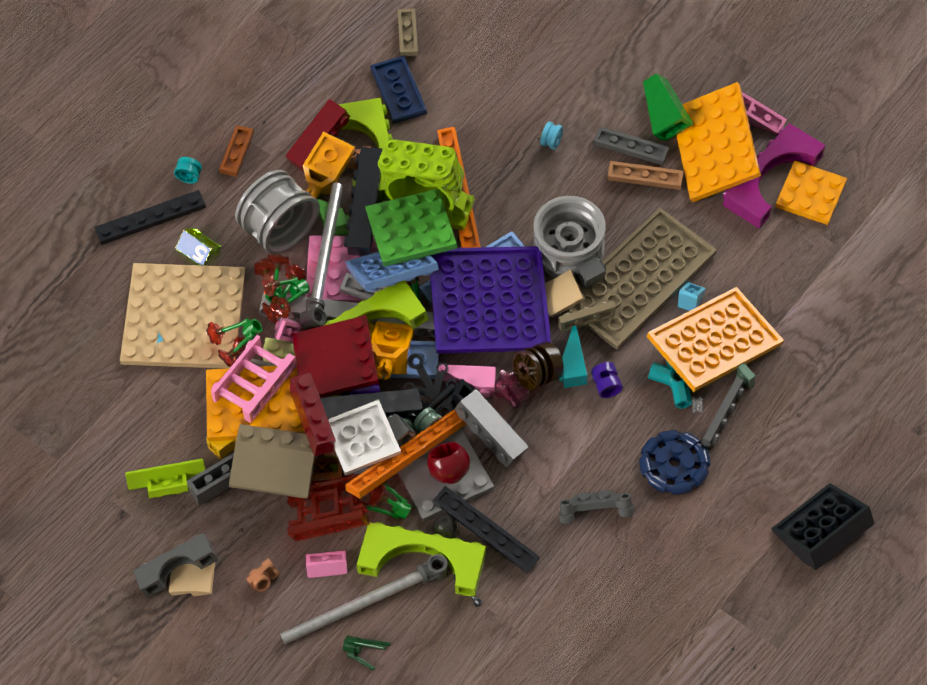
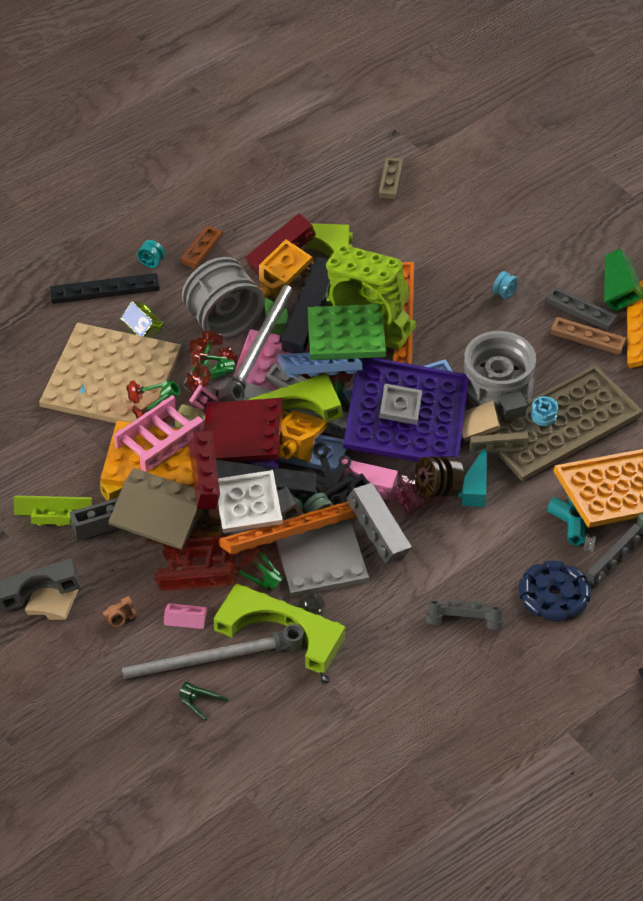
camera: 10 degrees right, 10 degrees down
(398, 89) = (369, 224): dark blue tile -> none
(448, 462) = (328, 544): dark red wheel -> none
(482, 295) = (400, 404): none -> light grey plate
(486, 529) = (350, 613): black plate -> none
(606, 380) = (505, 504): dark purple wheel -> none
(621, 277) = (544, 411): none -> medium azure wheel
(690, 296) = (605, 446): medium azure slope -> none

